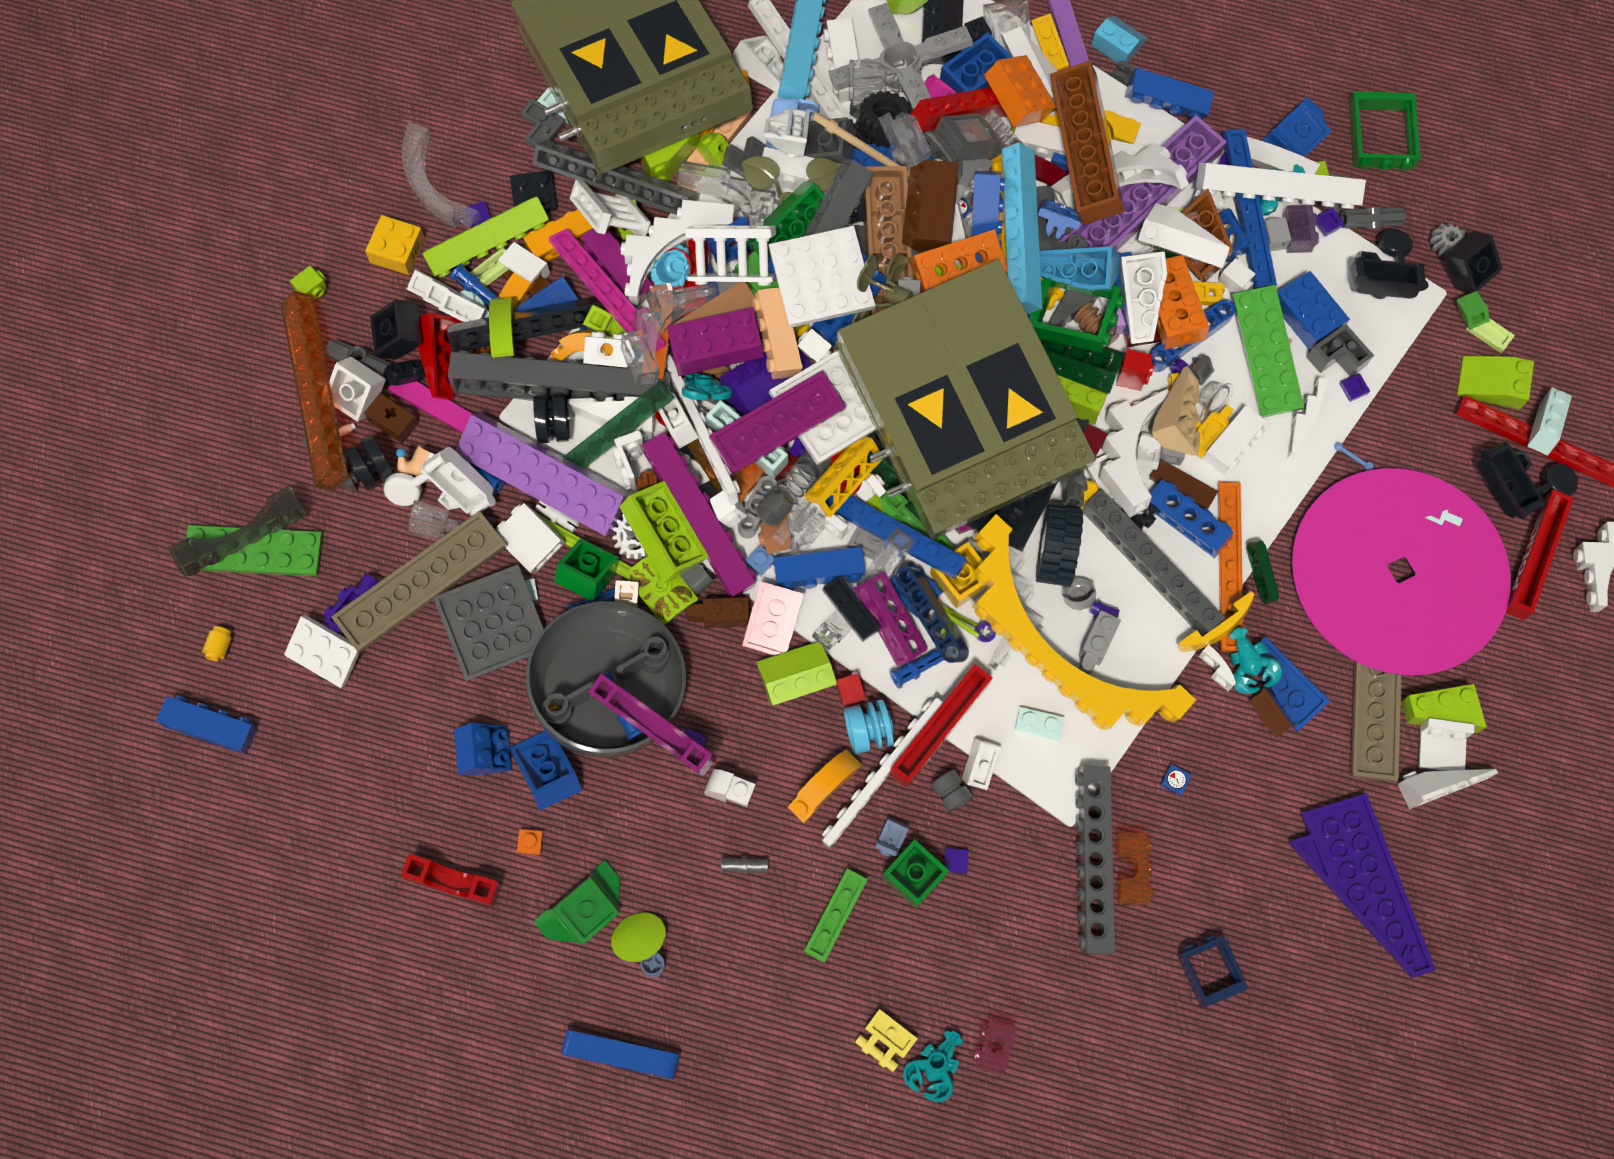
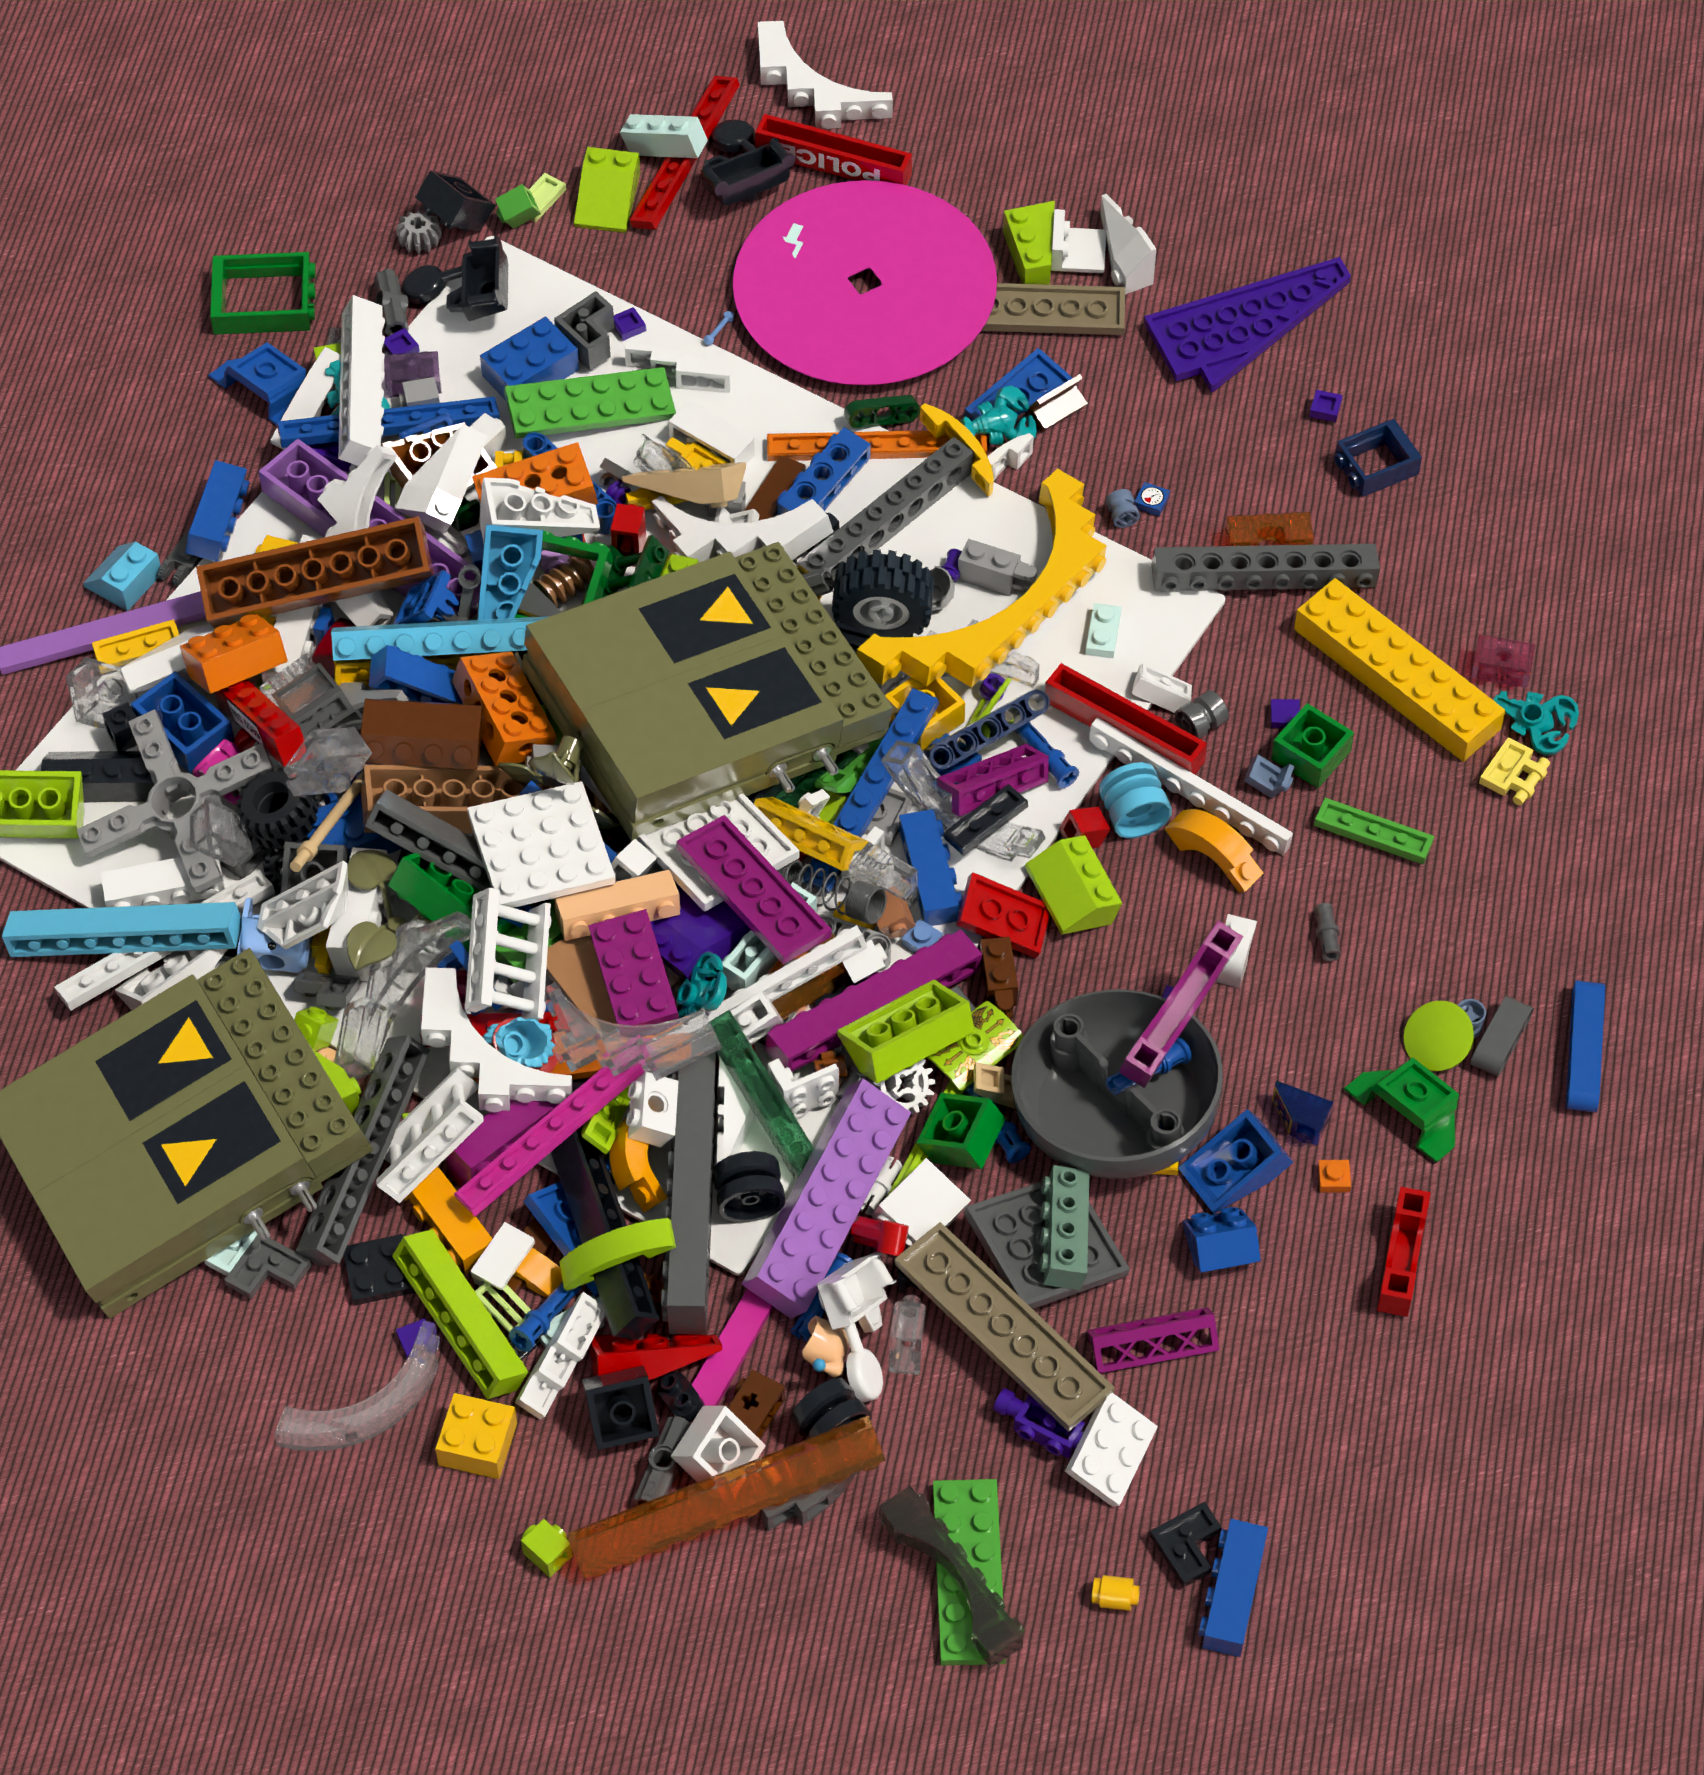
camera: 90 degrees left, 15 degrees down
(247, 691) = (1179, 1540): none -> black plate
(413, 690) = (1150, 1328): none -> magenta fence
(492, 632) = (1065, 1227): none -> sand green brick
(502, 507) = (883, 1235): none -> red piece
(581, 823) = (1302, 1112): none -> clear blue slope
(635, 988) = (1502, 1036): none -> dark grey beam
(989, 957) = (1399, 669): none -> yellow brick
(1163, 753) = (1122, 508): none -> sand blue wheel
(1271, 936) = (1326, 405): none -> dark purple plate

